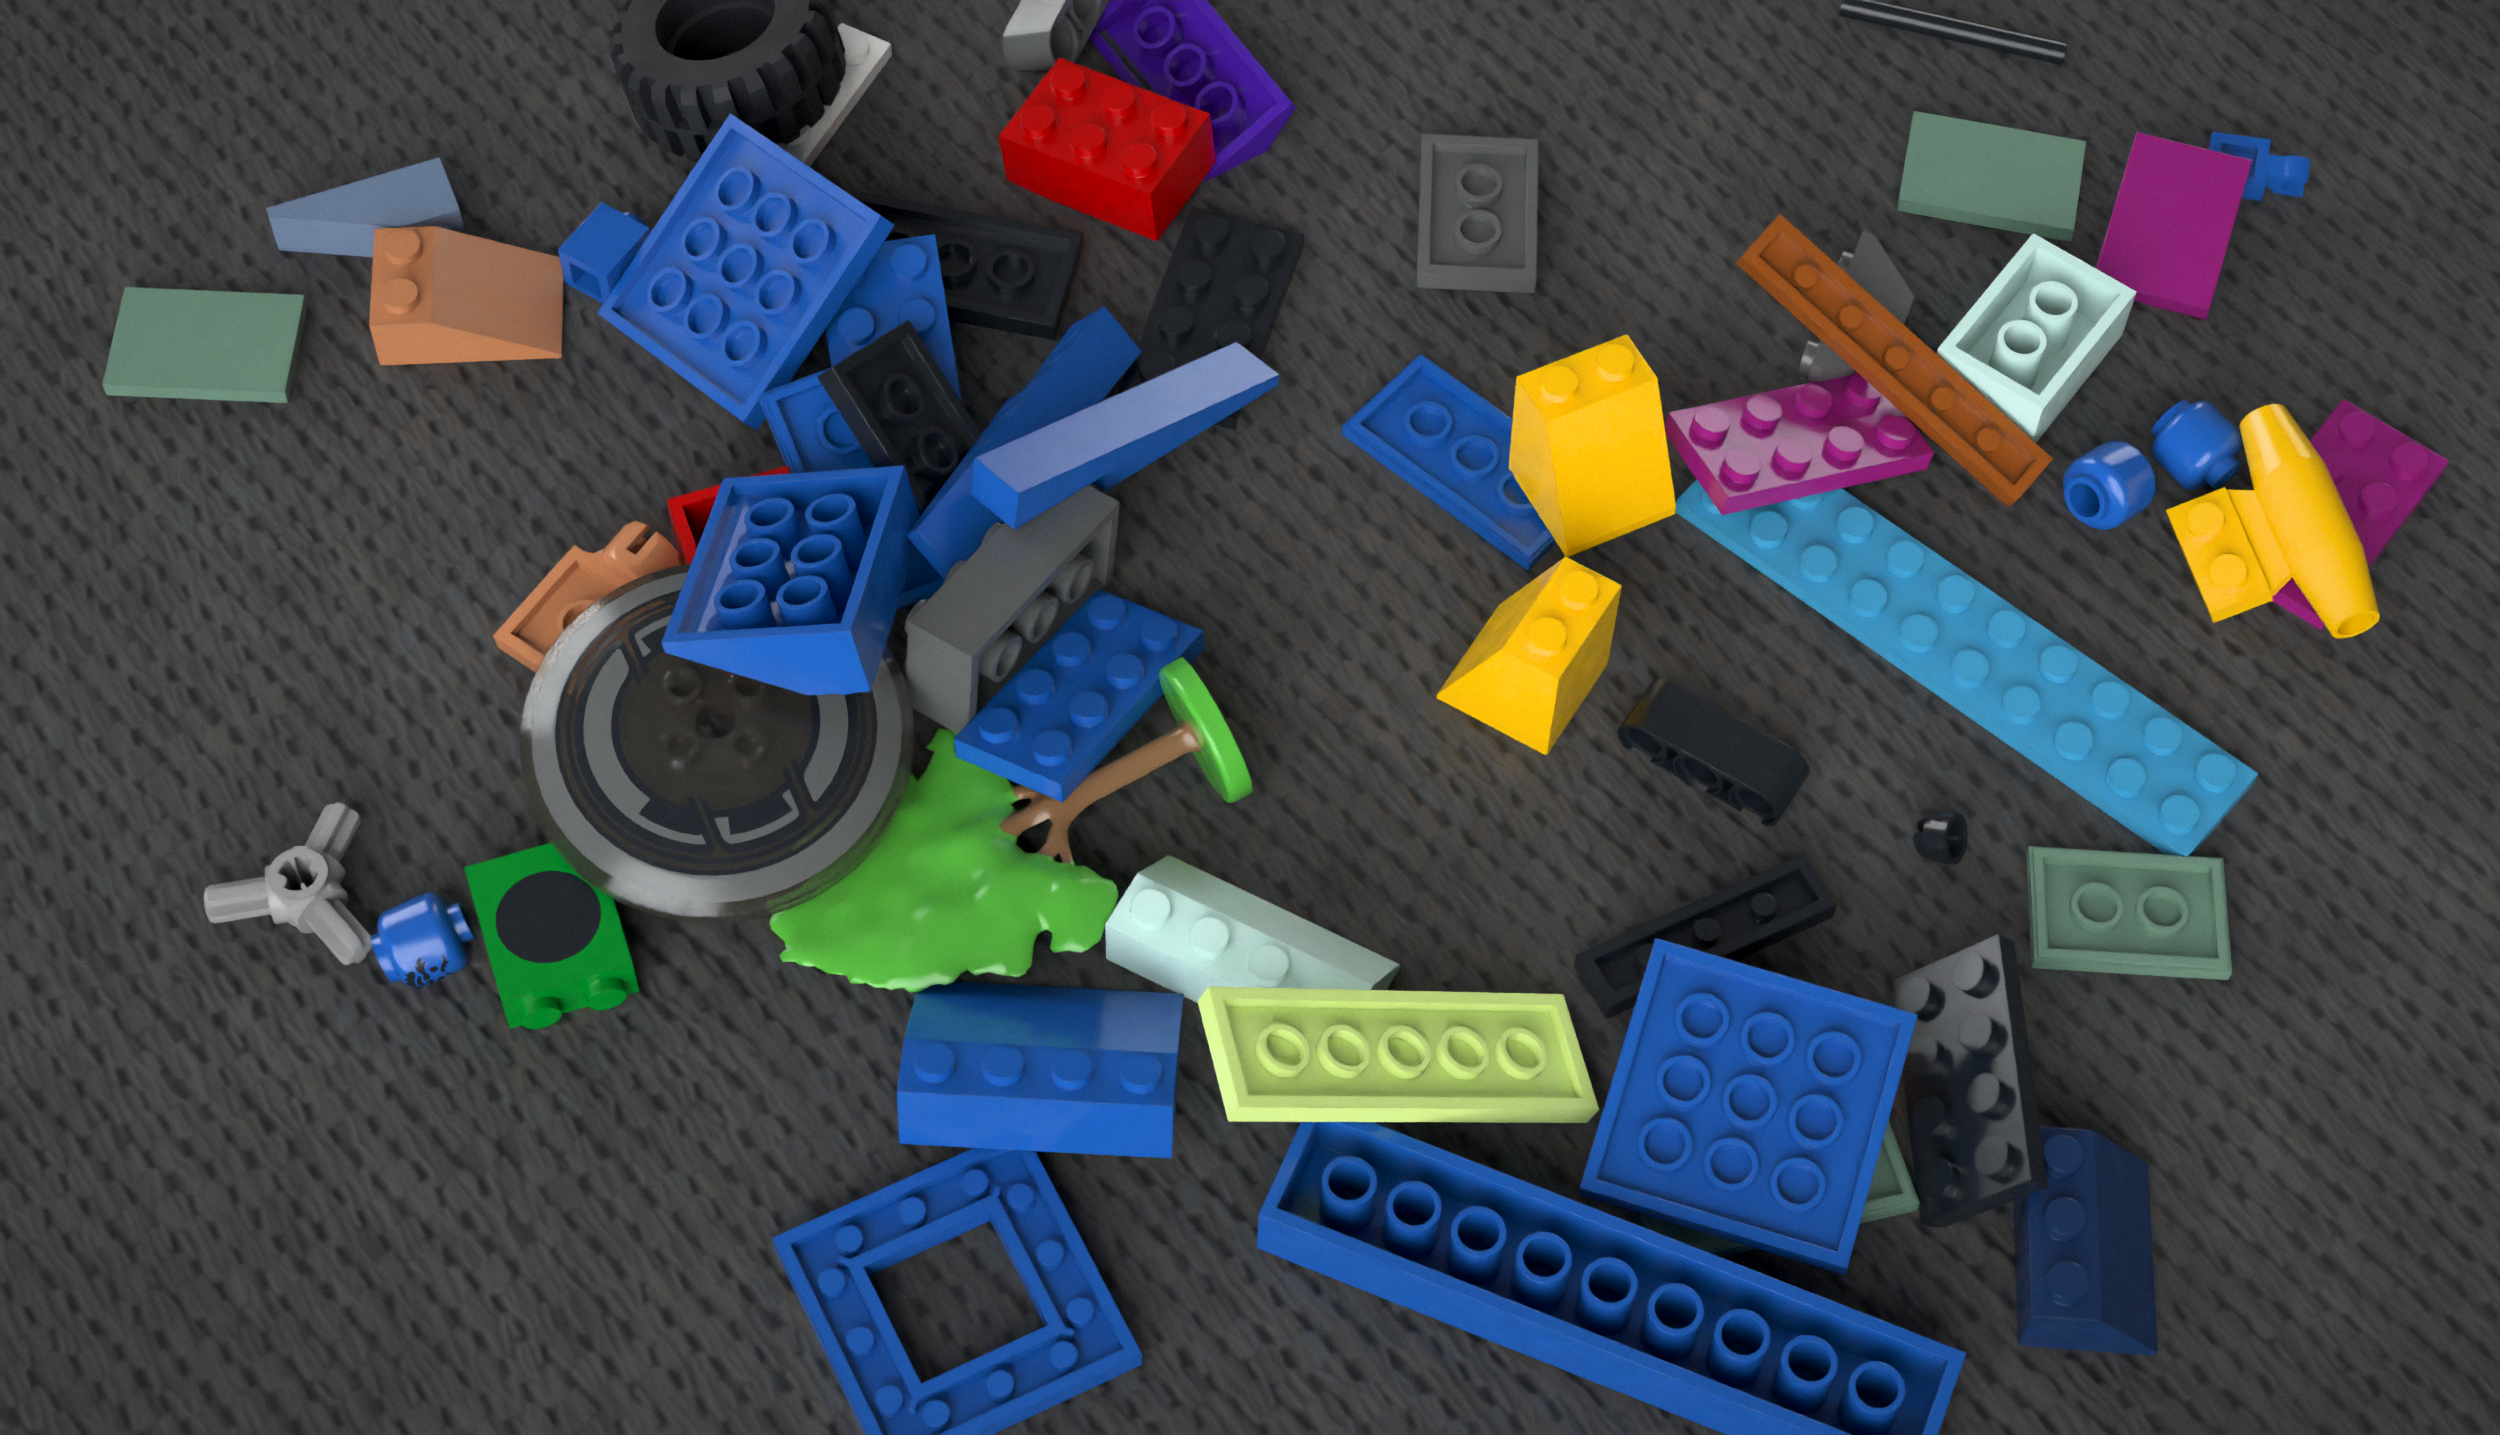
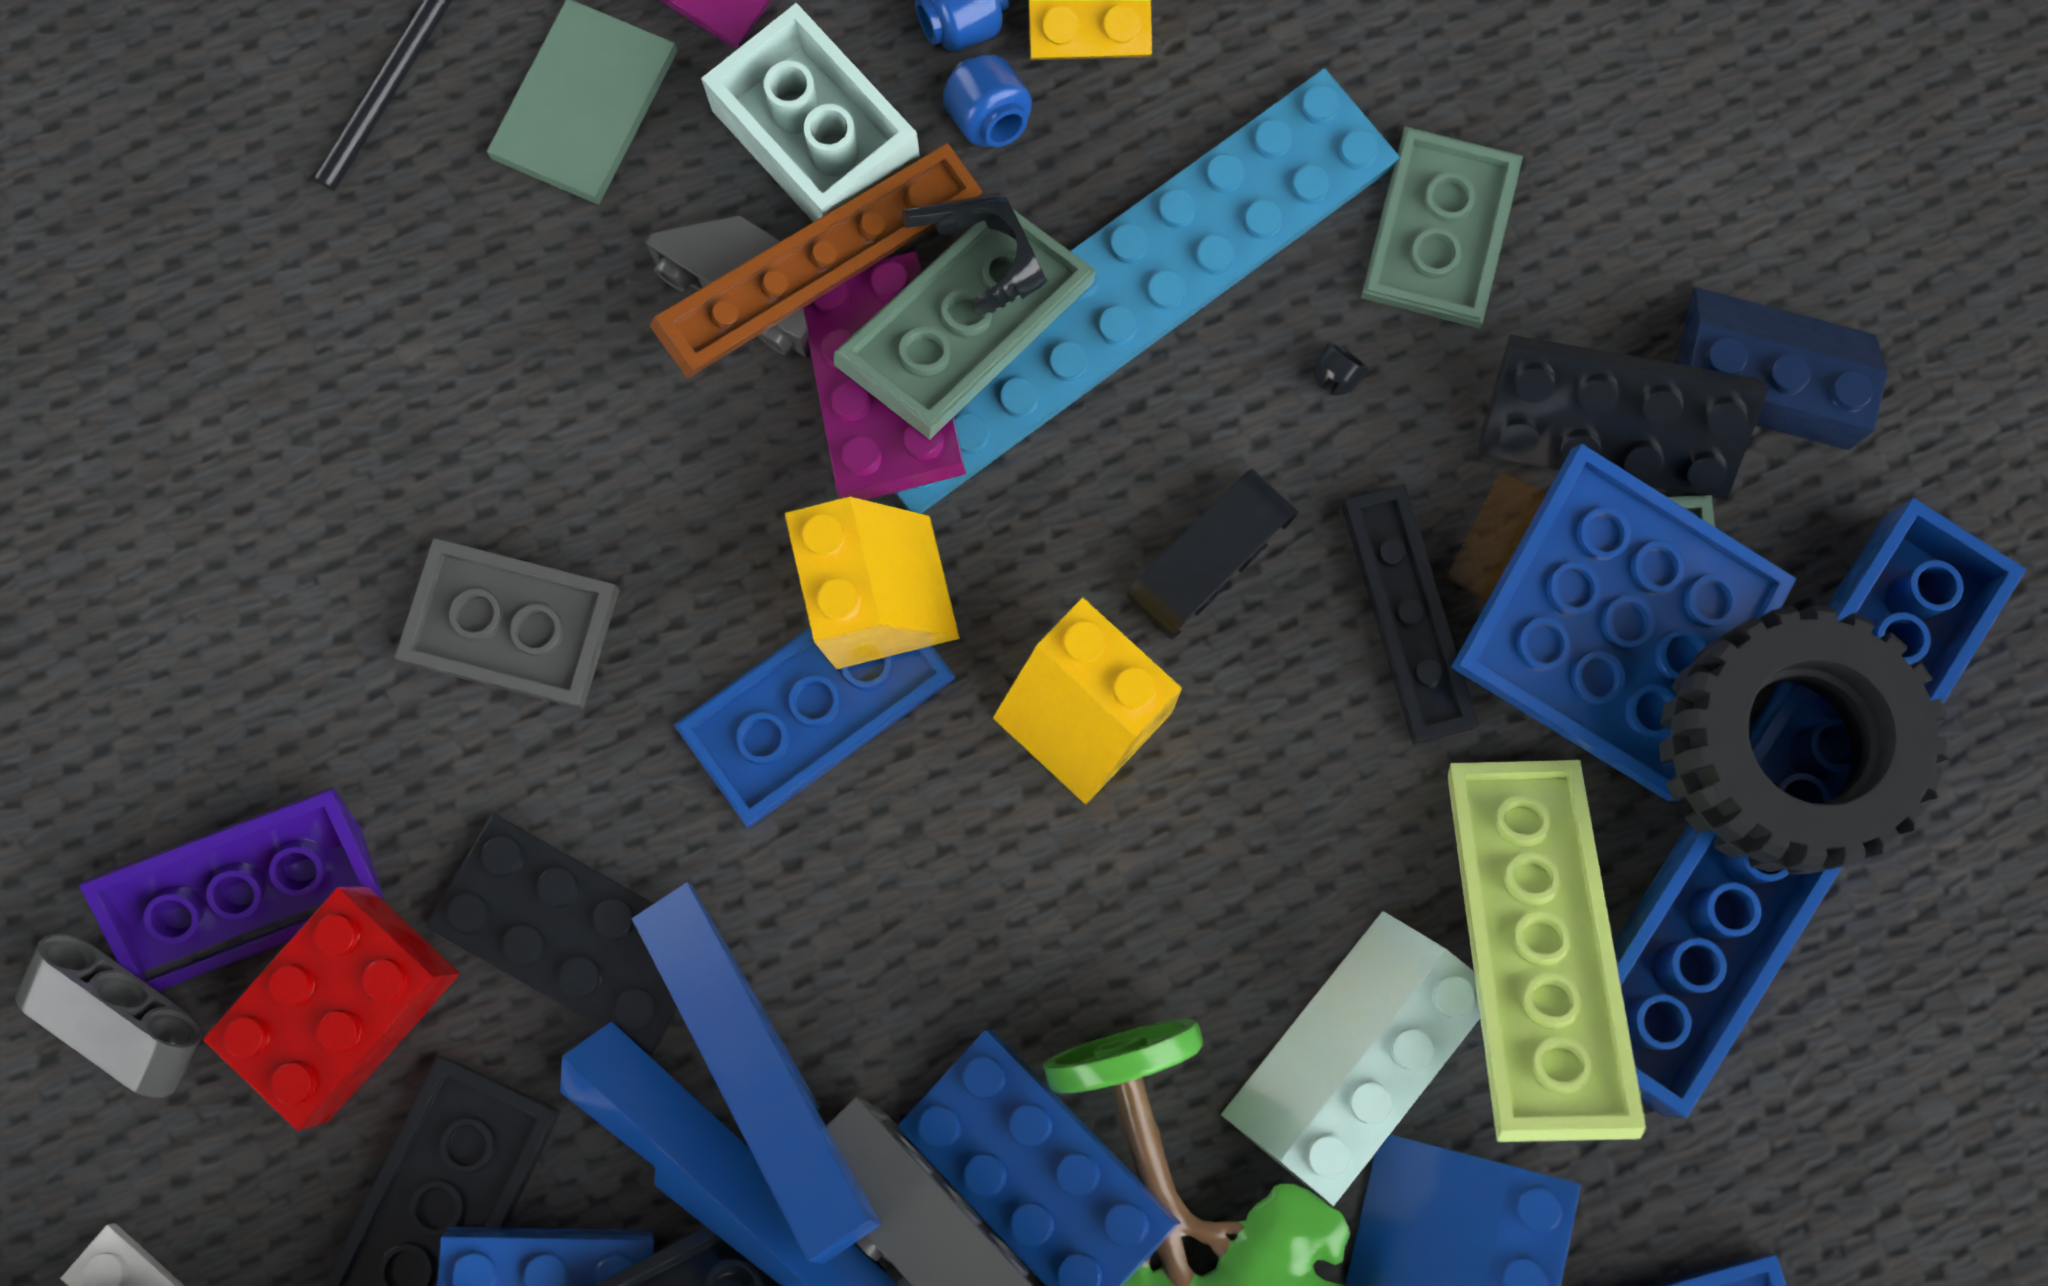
camera: 75 degrees left, 20 degrees up
(1677, 1148) = (1874, 694): none -> black tyre
(1875, 486) = (930, 348): none -> sand green tile
(1944, 514) = (949, 217): none -> black helmet

